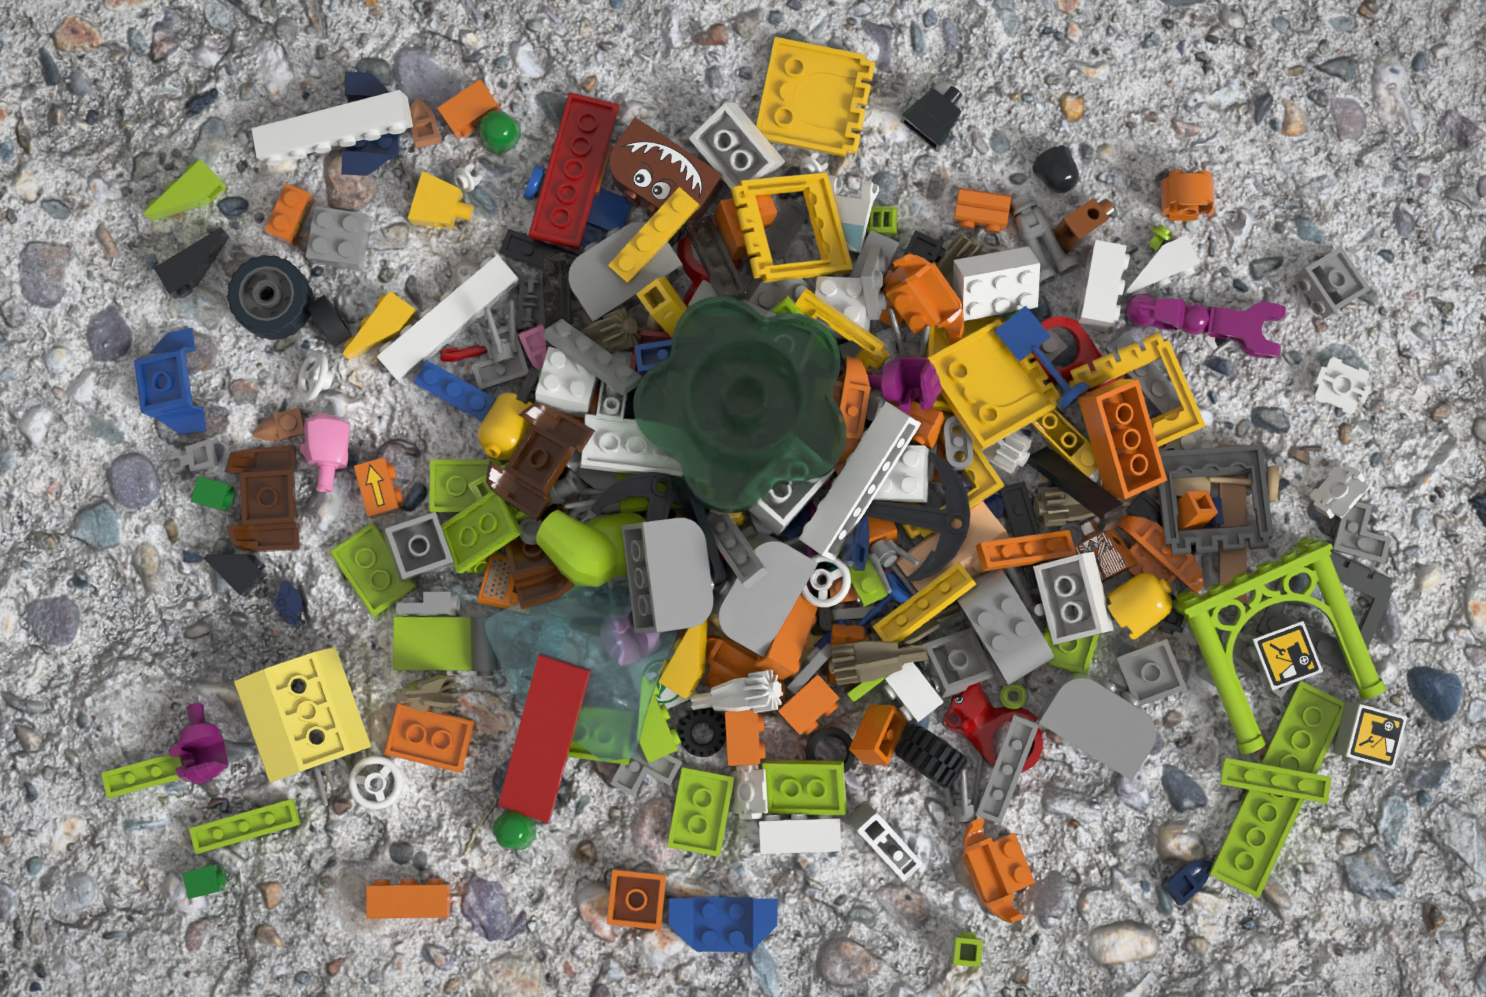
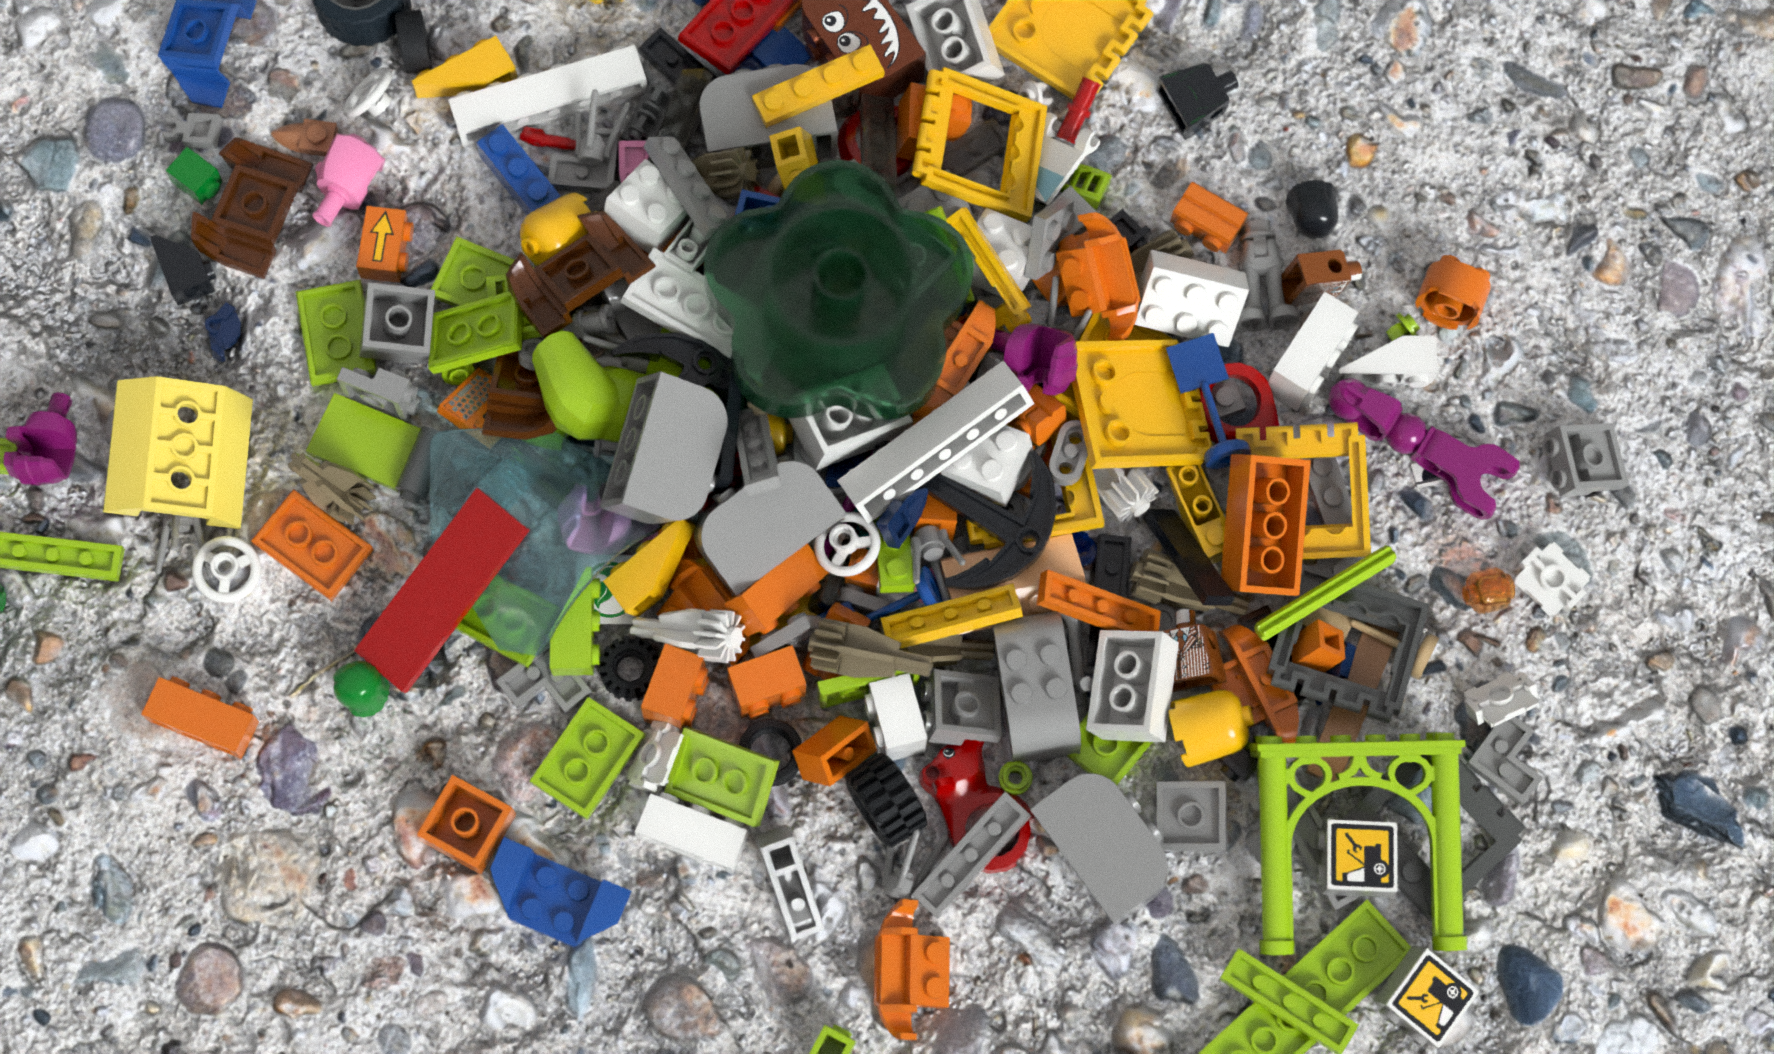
camera: 15 degrees right, 10 degrees down
(851, 165) = (1078, 110): none -> red pin
(1184, 468) = (1325, 592): none -> lime axle
(1299, 413) = (1488, 590): none -> clear orange head

